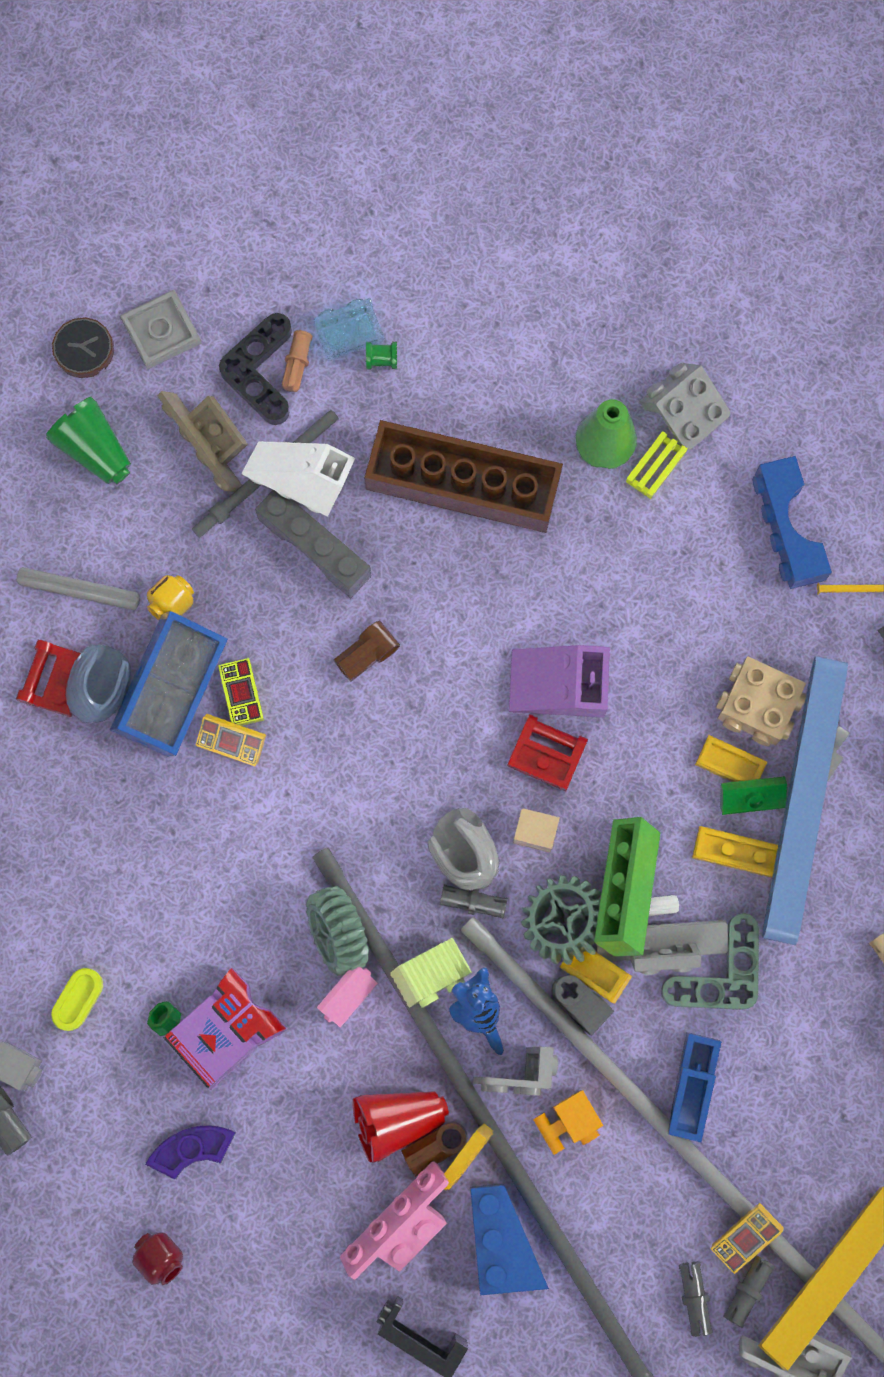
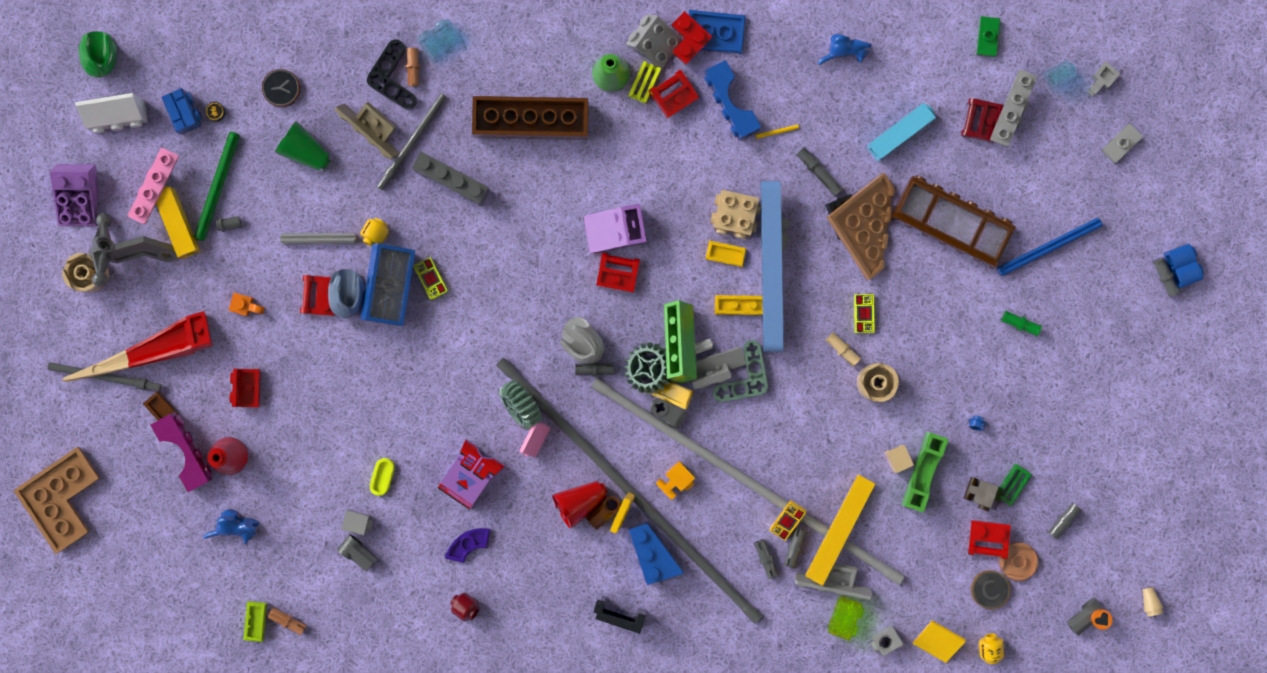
camera: 10 degrees left, 10 degrees up
(160, 329) = (325, 65): light grey tile -> none
(163, 1018) = (434, 476): green tile -> none
(230, 740) = (431, 308): tile -> none
(300, 472) = (432, 138): white slope -> none
(373, 646) = (501, 233): reddish brown piece -> none
(381, 355) = (463, 52): green bush -> none
(401, 1228) = (595, 559): bright pink bracket -> none
(431, 973) = (579, 416): yellowish green brick -> none
(478, 1008) = (610, 429): blue animal -> none
(536, 830) = (621, 320): tan panel -> none
(539, 1069) = (652, 455): light grey bracket -> none
(694, 1087) = (741, 444): blue slope -> none
(703, 501) = (677, 99): none -> red plate
(750, 413) = (694, 38): none -> red plate
(753, 795) = (742, 270): green plate -> none
(785, 414) = (725, 29): none -> blue tile

